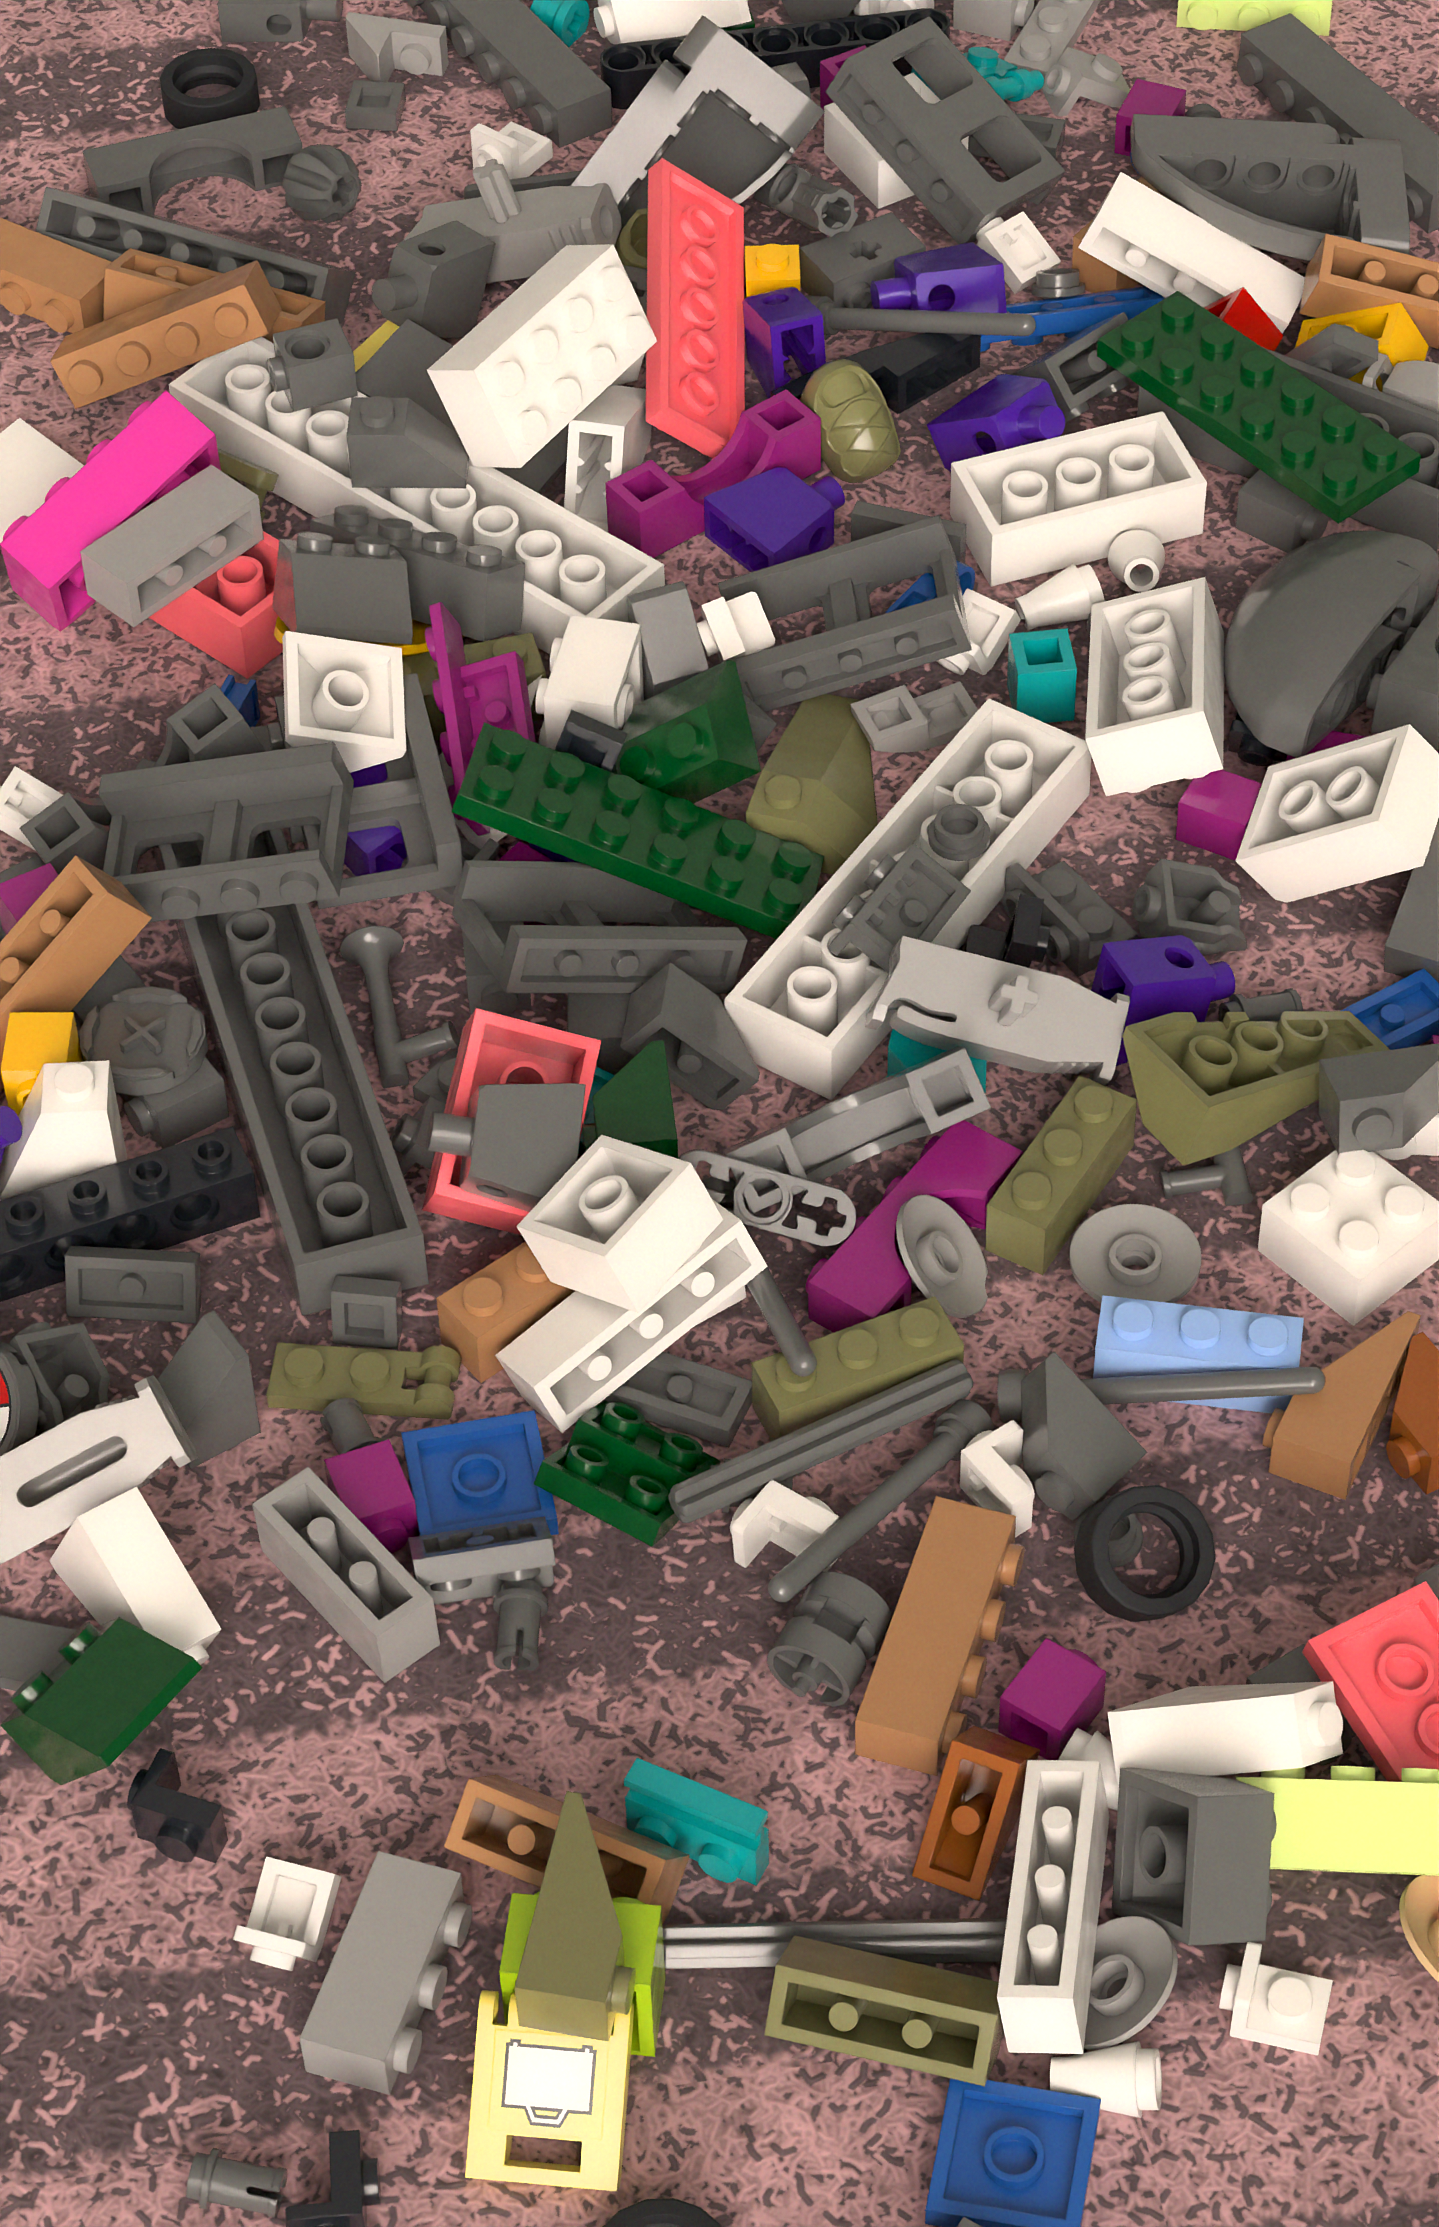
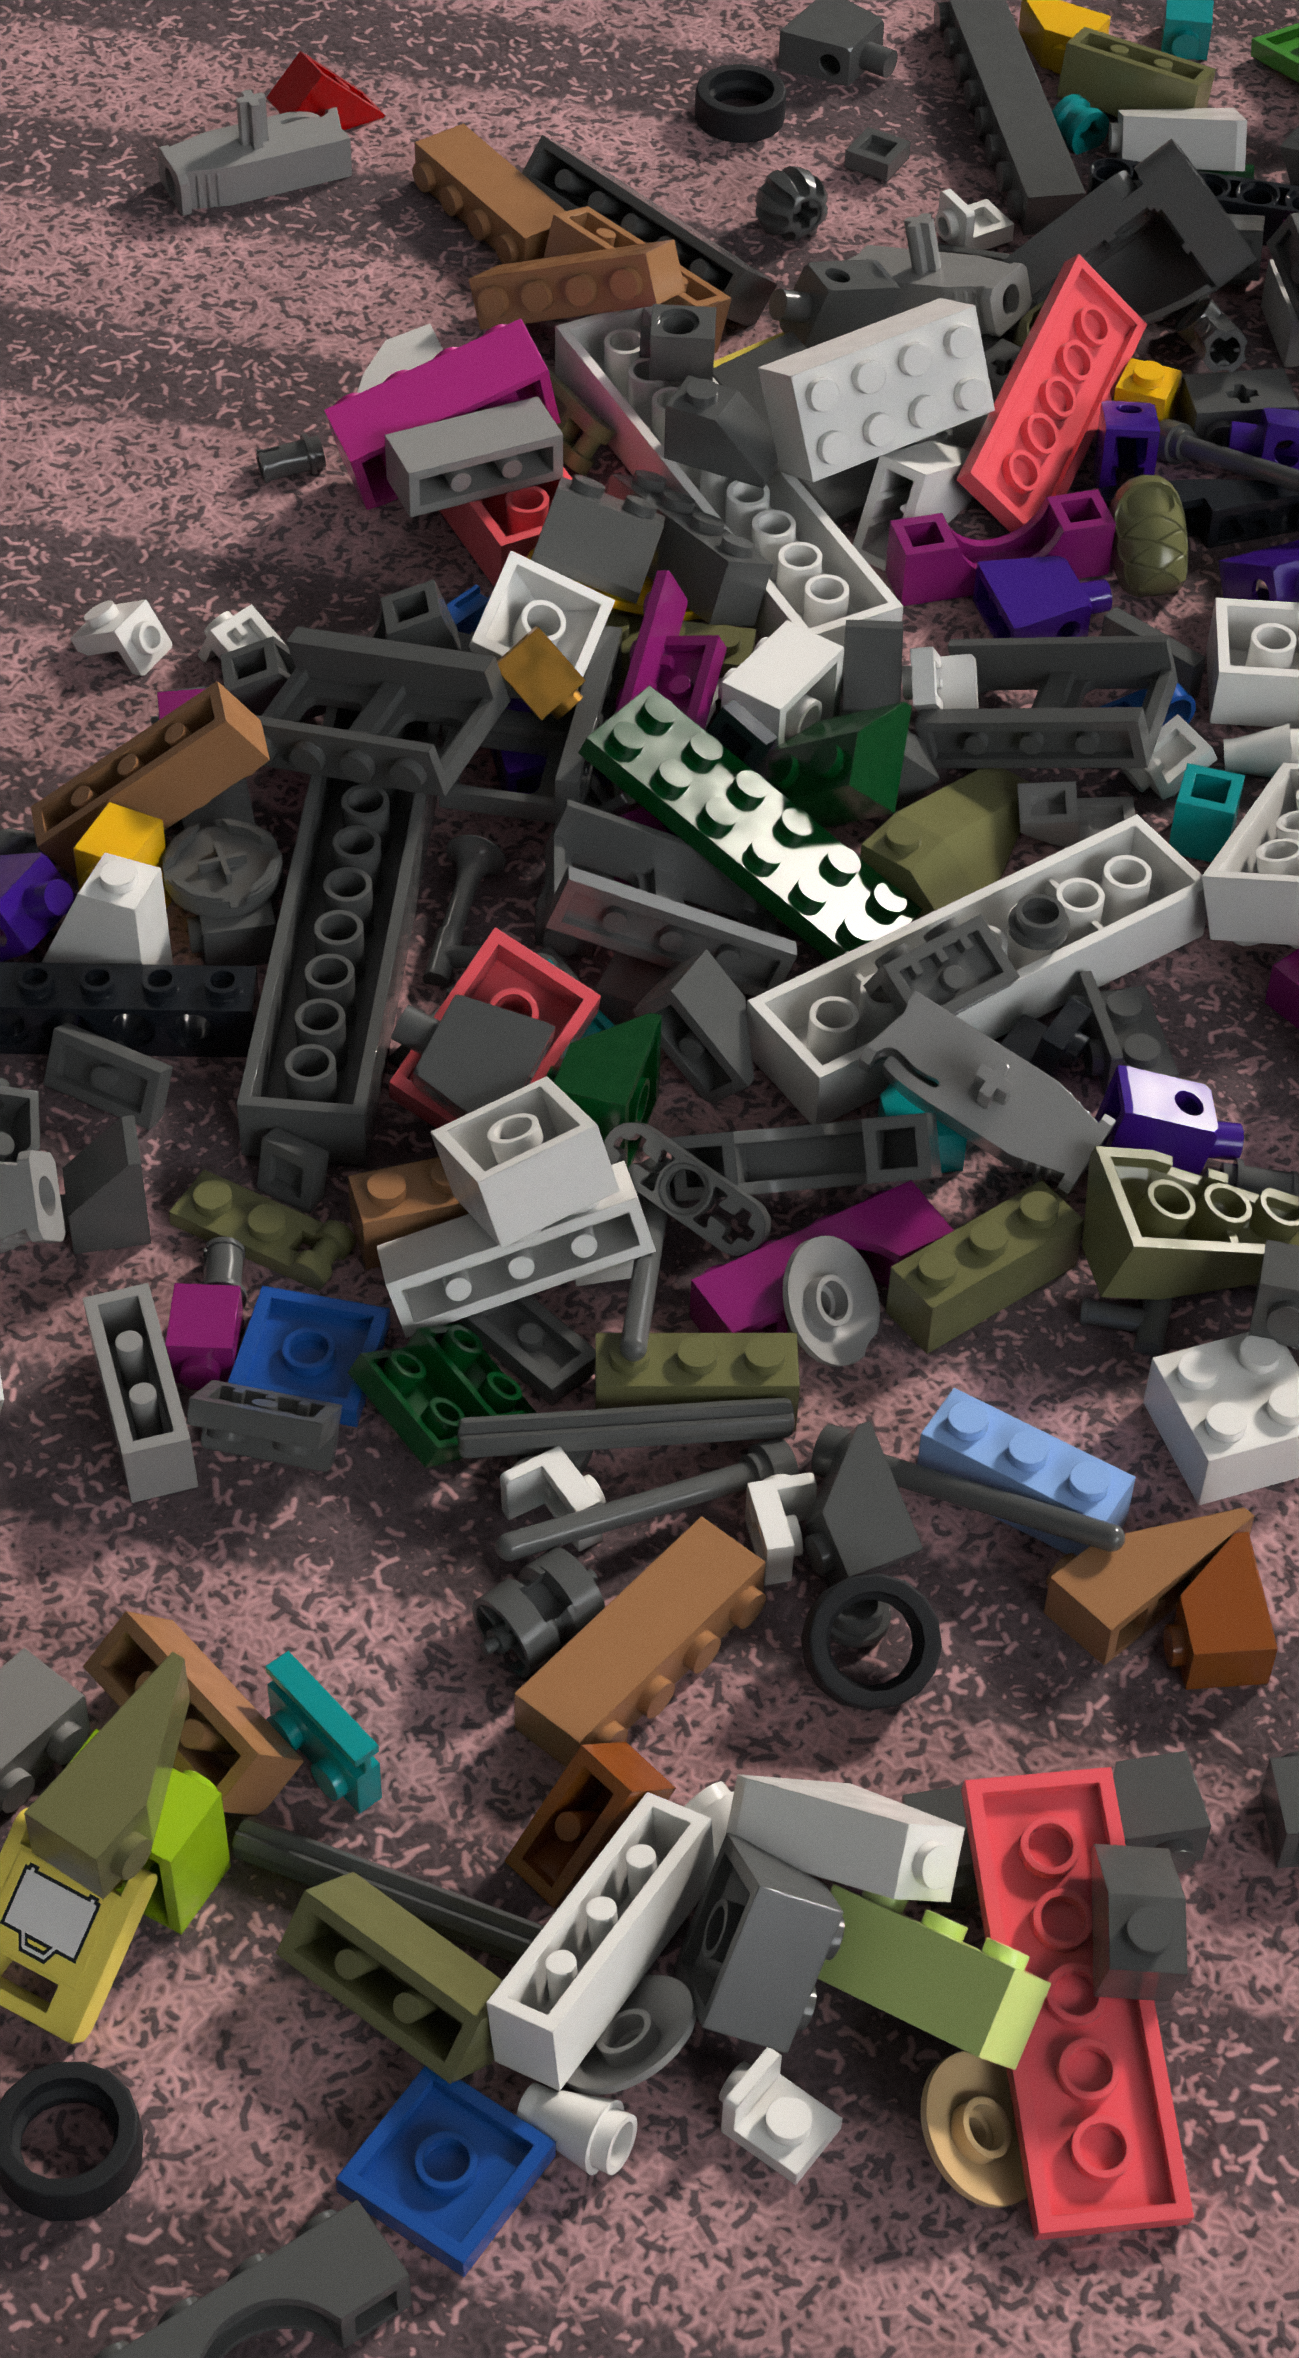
camera: 20 degrees right, 0 degrees up
(242, 148) = (650, 149): dark grey arch -> none
(375, 745) = (541, 675): none -> pearl gold brick
(389, 44) = (922, 108): light grey slope -> none
(519, 1611) = (281, 1482): dark grey pin -> none
(1052, 1699) = (715, 1743): magenta brick -> none
(1138, 1237) = (1021, 1346): light grey dish -> none
(1190, 903) = (1238, 1066): dark grey hand -> none

